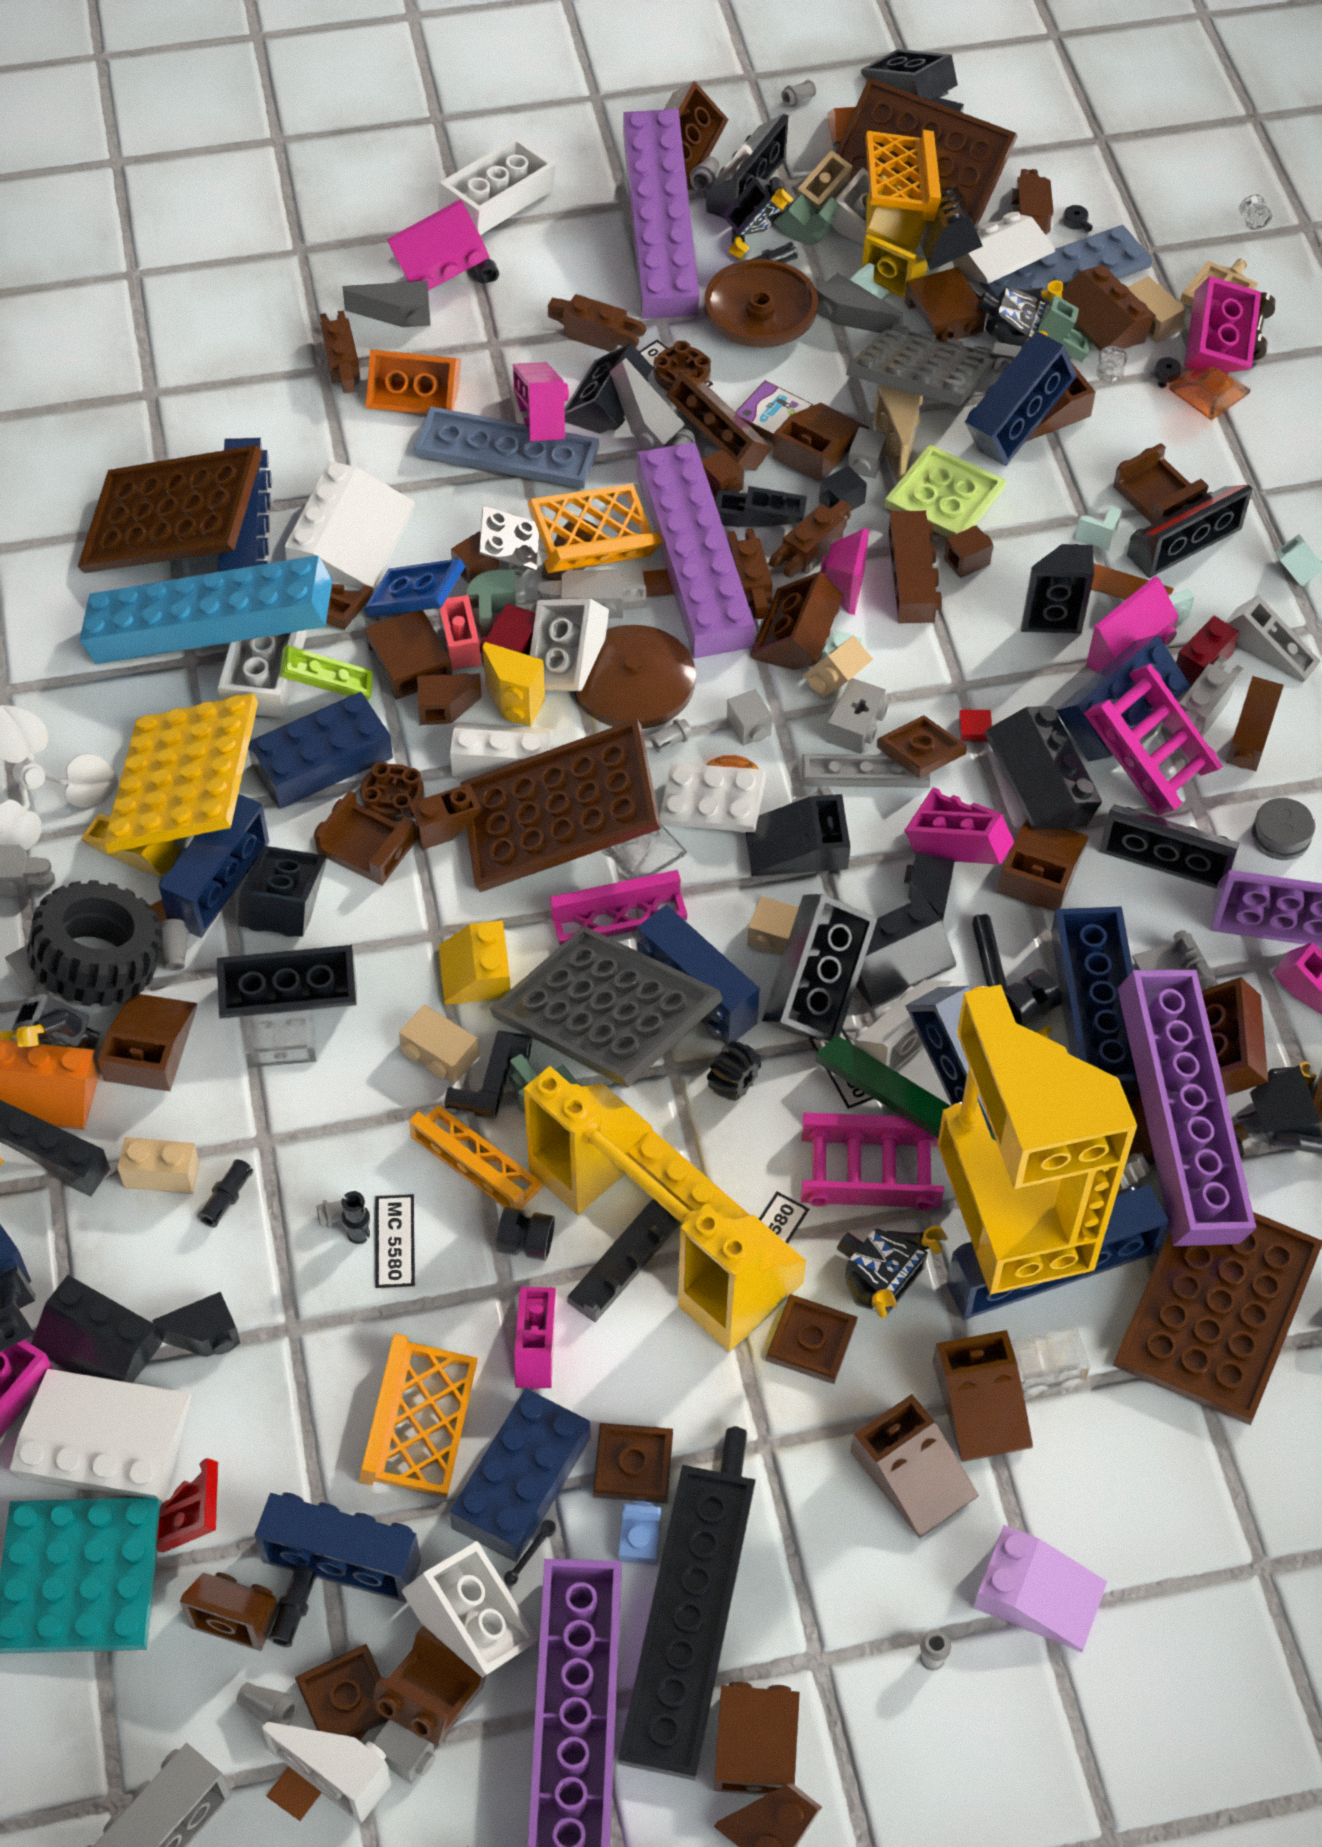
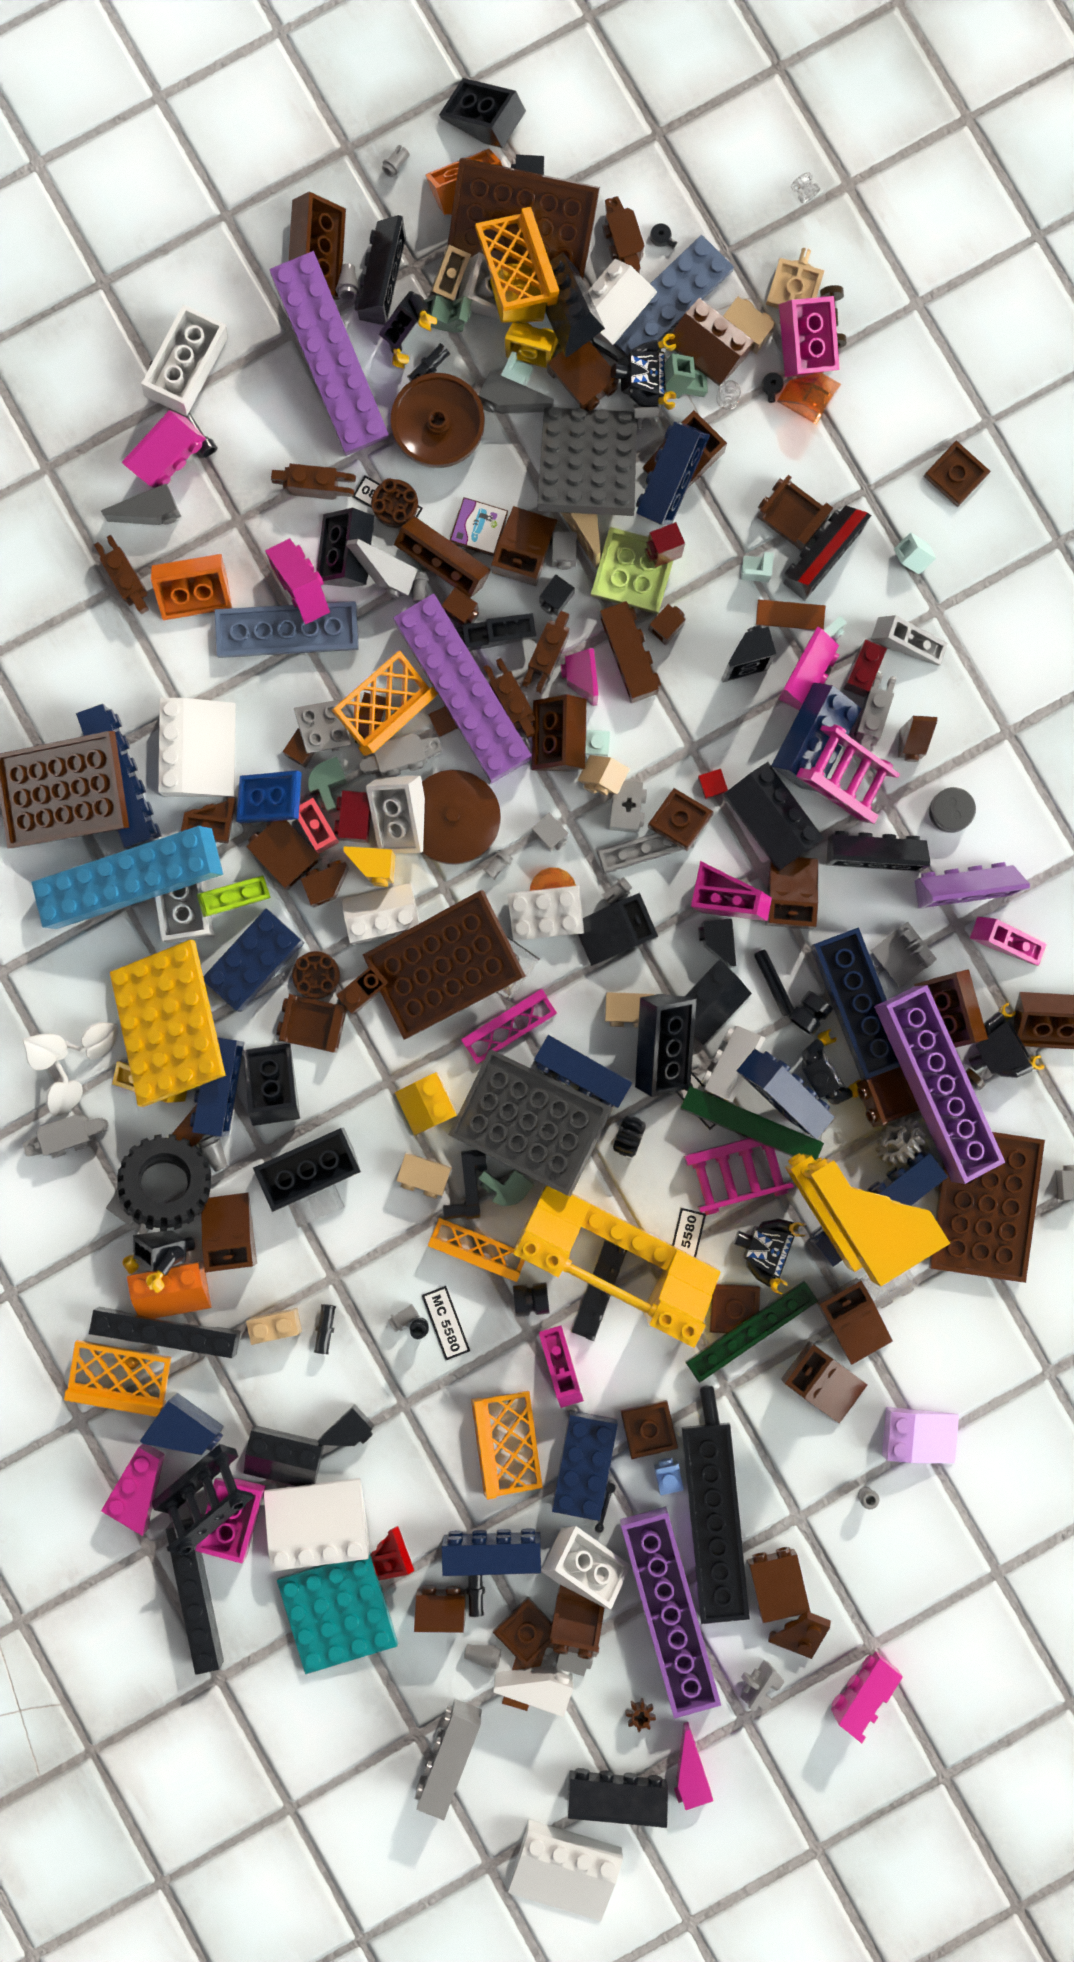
camera: 15 degrees left, 30 degrees up
(826, 1367) = (751, 1331): none -> dark green tile
(989, 461) = (665, 545): none -> dark red brick

